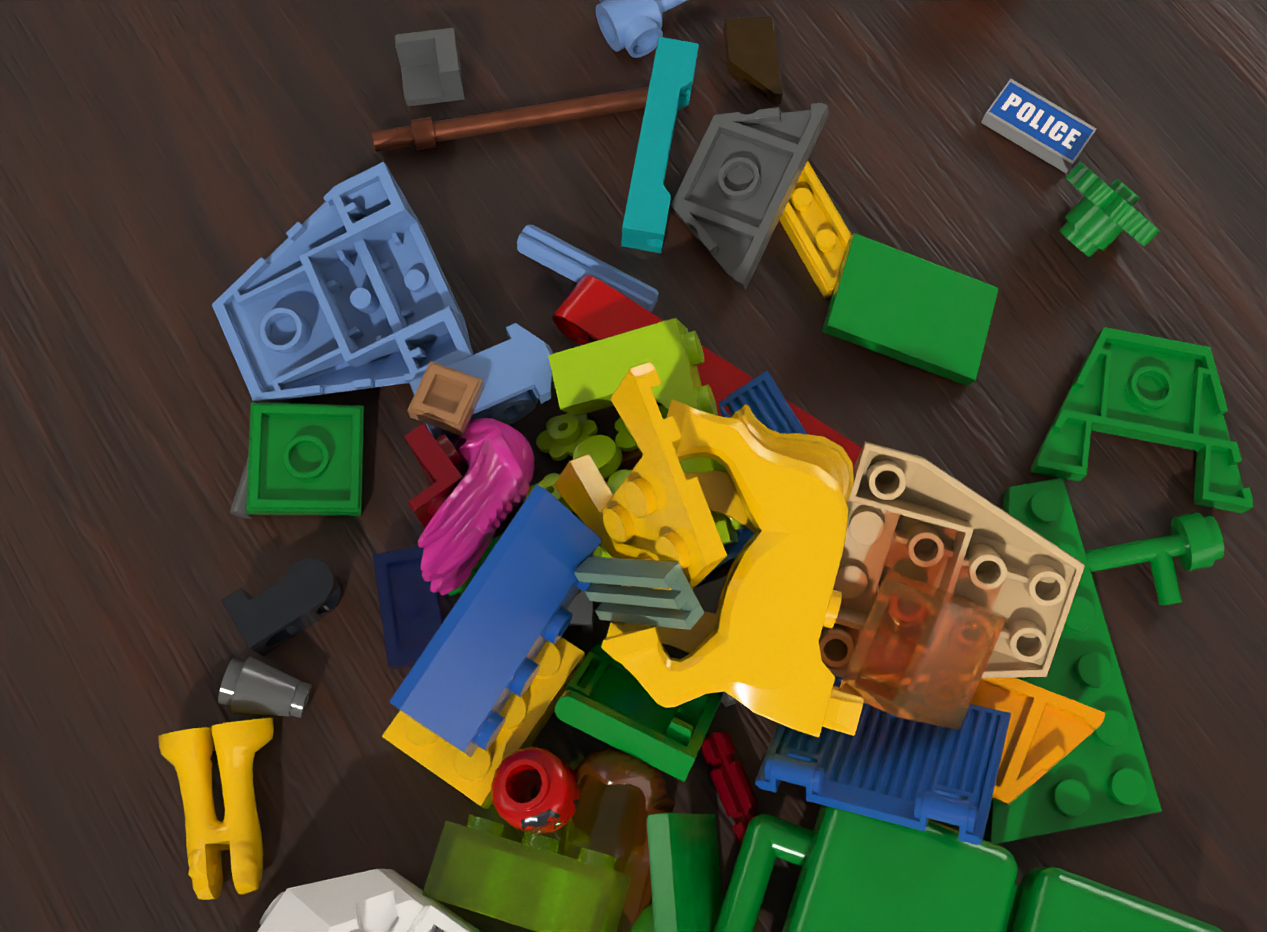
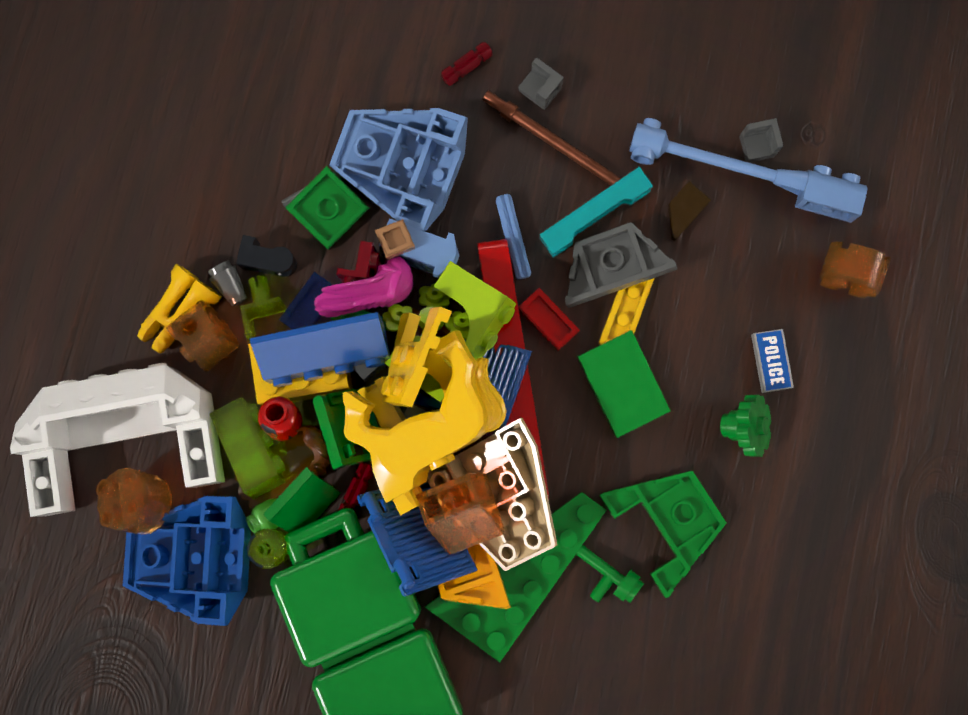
camera: 50 degrees right, 10 degrees up
(302, 795) = (203, 336): none -> clear orange brick
(310, 128) = (466, 63): none -> dark red axle
(342, 671) = (261, 305): none -> clear neon green bracket
(640, 602) = (376, 387): sand green tile -> none
(740, 325) = (548, 319): none -> red tile

